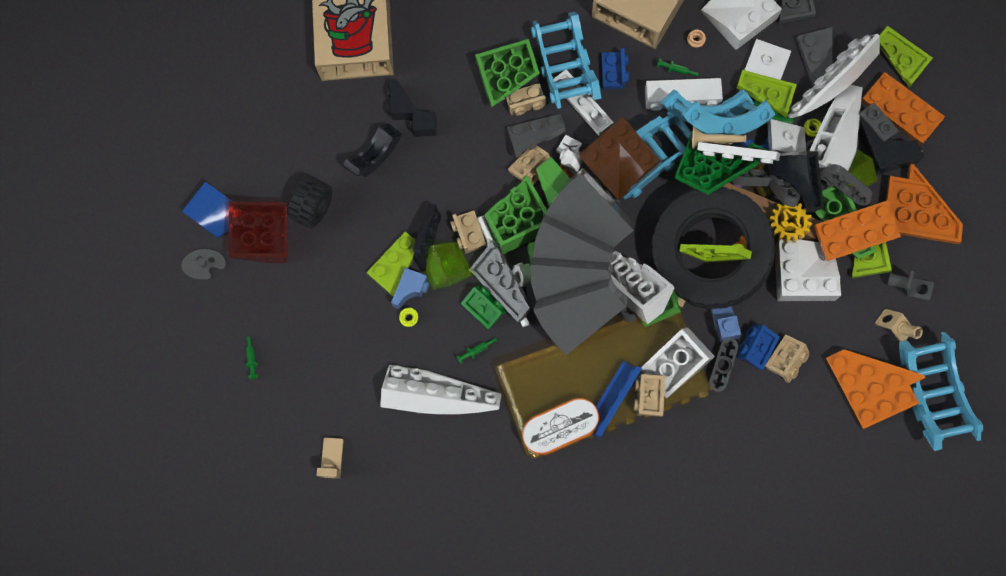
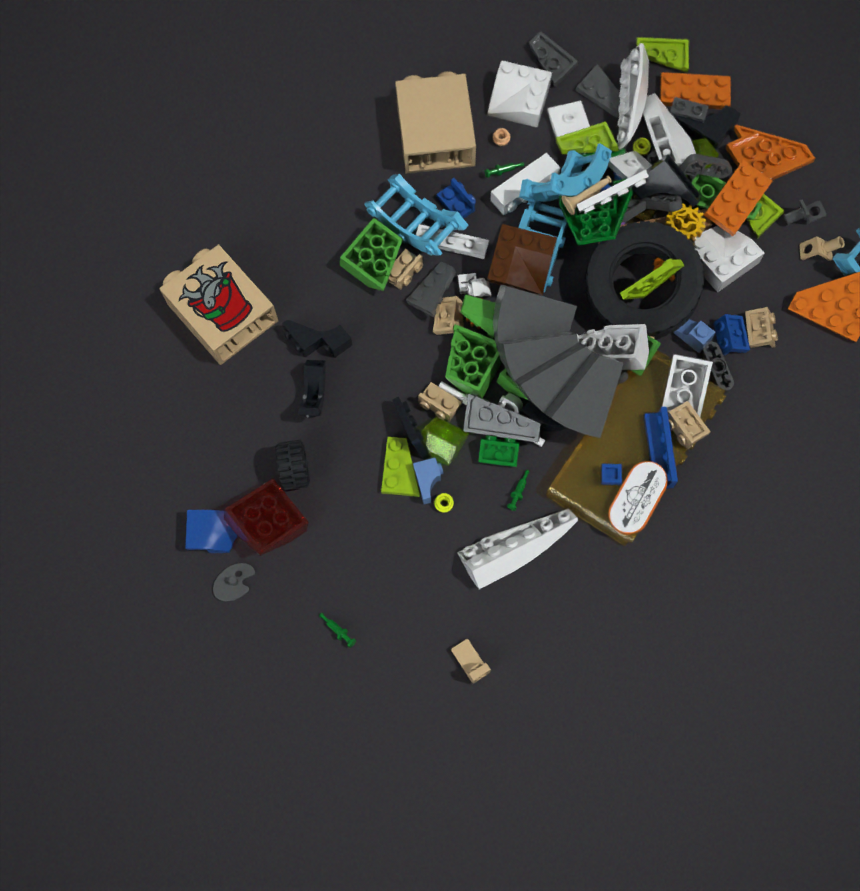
camera: 40 degrees left, 5 degrees down
(555, 391) = (611, 474): none -> blue plate

